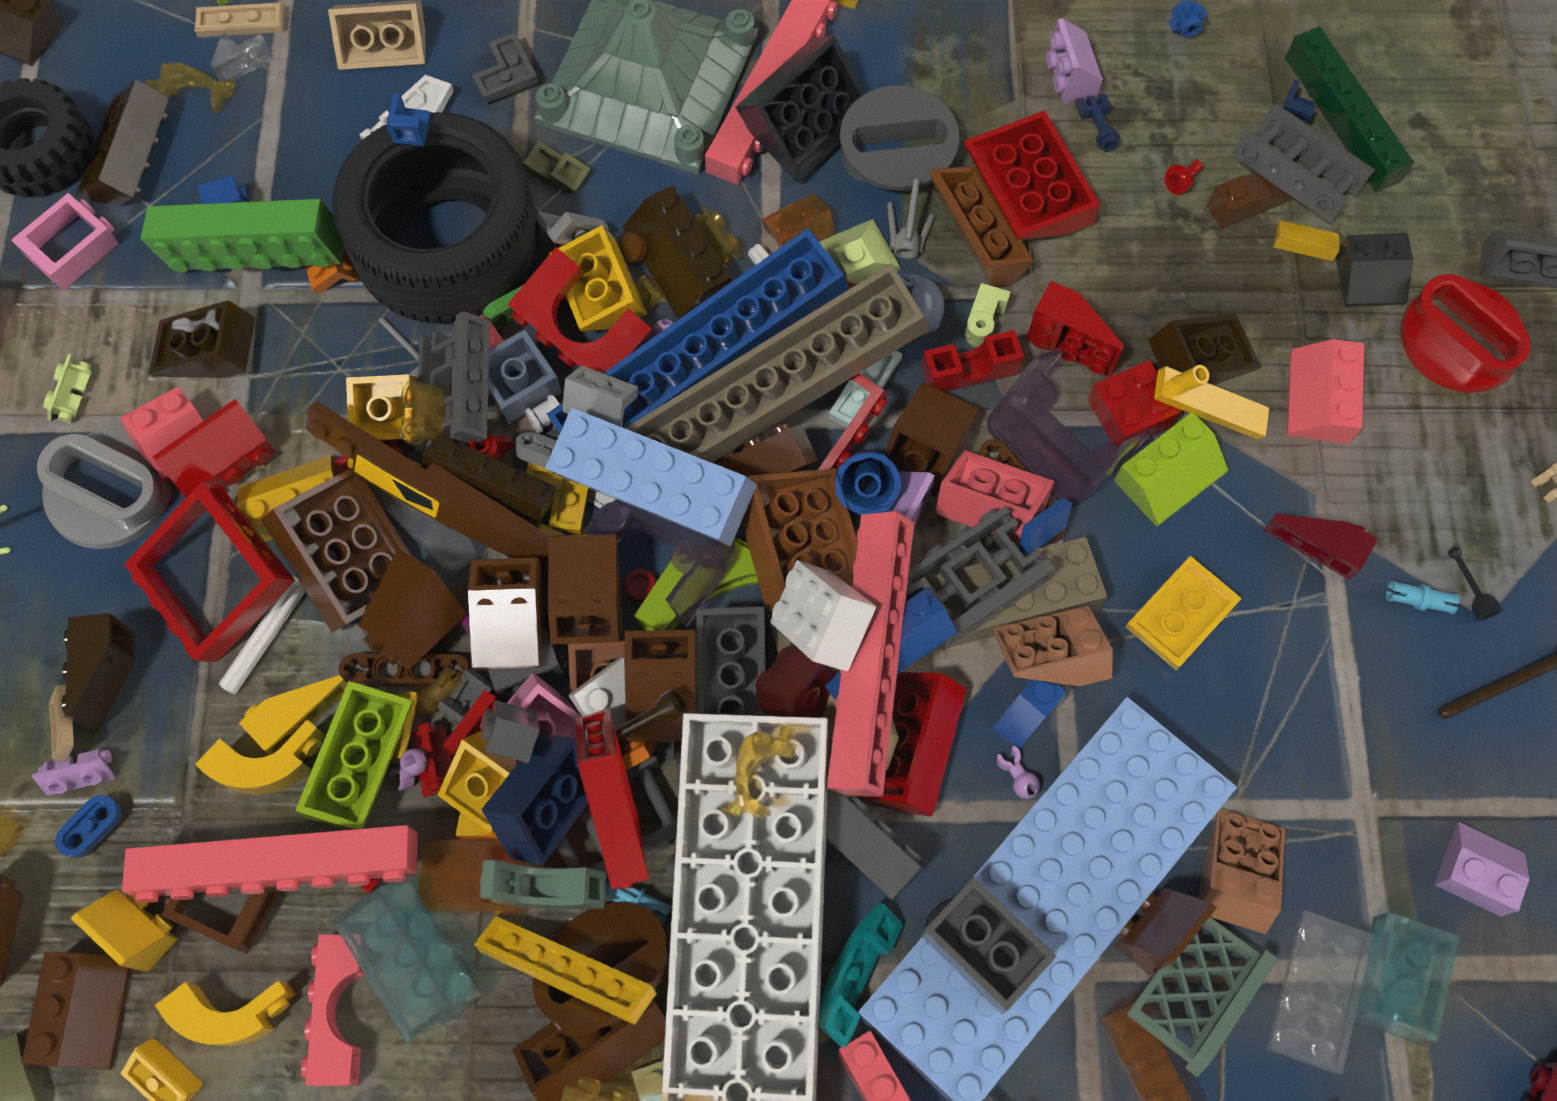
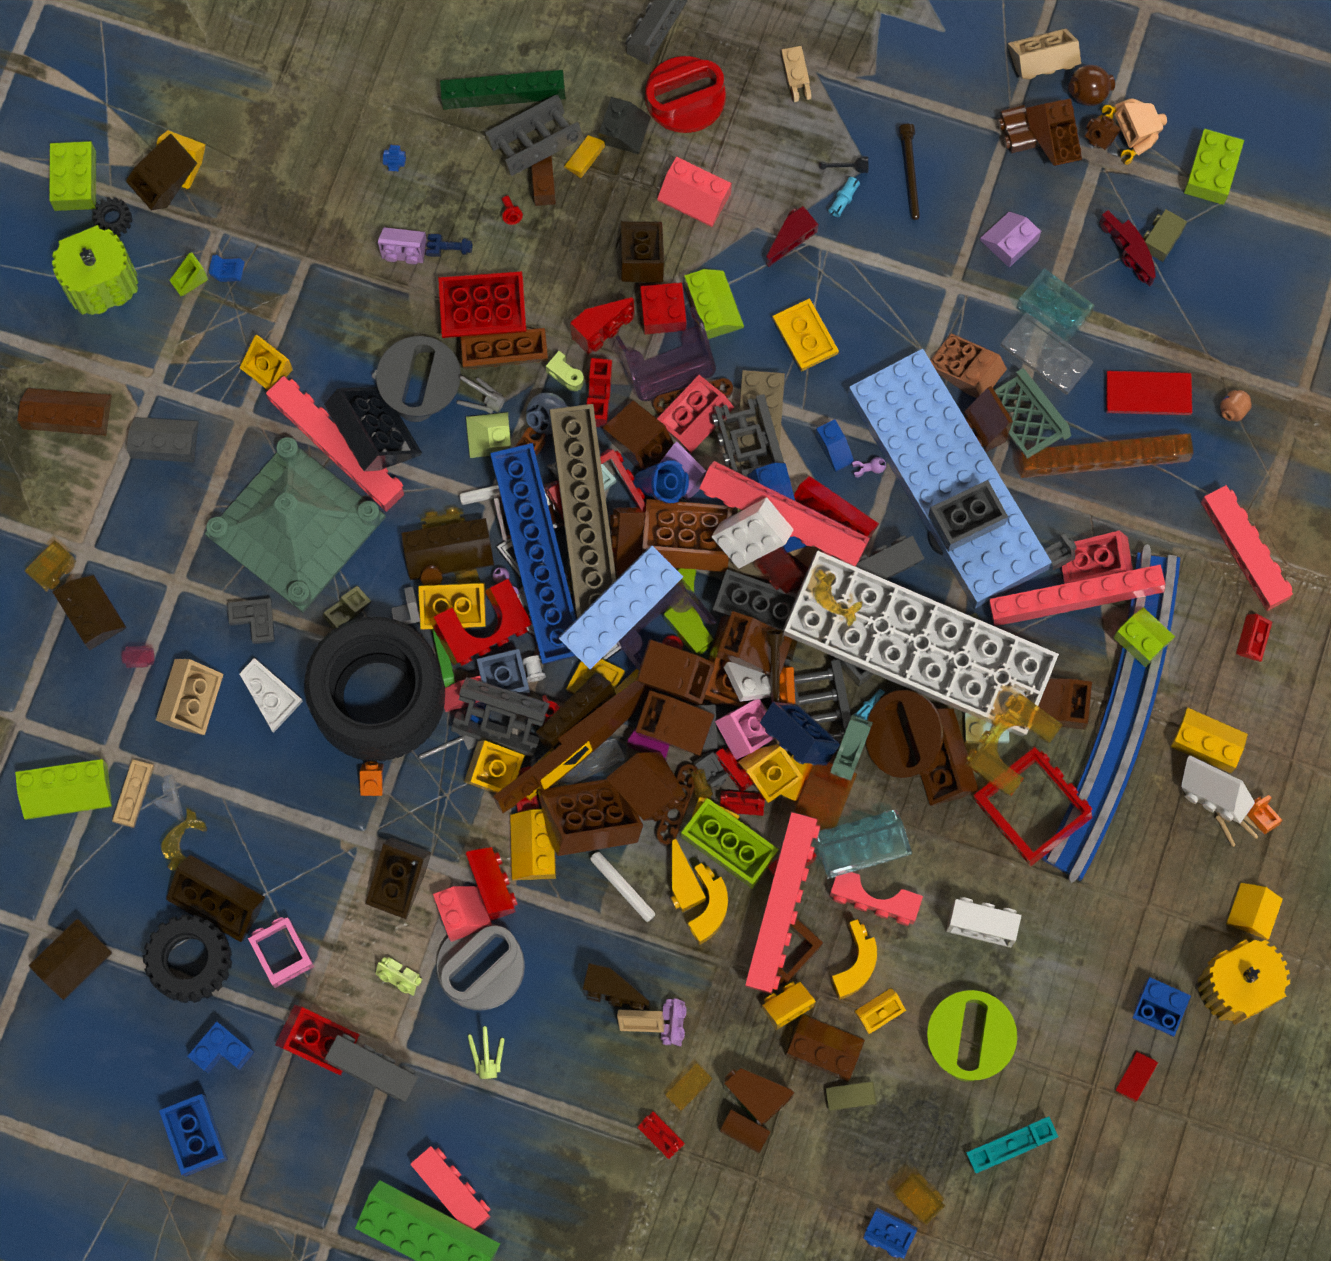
camera: 70 degrees left, 5 degrees up
(87, 823) = (713, 1020): blue plate -> none
(223, 191) = (289, 836): blue brick -> none
(243, 235) = (336, 822): bright green brick -> none
(261, 558) = (564, 870): red window -> none
(407, 124) = (320, 676): blue panel -> none
(411, 764) = (744, 811): lavender arm -> none
(421, 407) = (514, 739): clear yellow piece -> none
(509, 731) = (757, 734): dark grey brick -> none
(534, 448) = (561, 677): light grey beam -> none
(566, 969) = (900, 752): yellow plate -> none
(598, 395) = (549, 624): light grey panel -> none
(610, 799) = (796, 686): red window -> none
(797, 217) = (453, 464): clear orange bracket -> none
(852, 969) = (936, 583): teal slope -> none
(1044, 526) = (728, 391): blue tile -> none
(1057, 648) = (805, 414): nougat slope -> none
(1193, 394) = (681, 262): yellow piece -> none
(1298, 106) = (487, 119): dark blue panel -> none

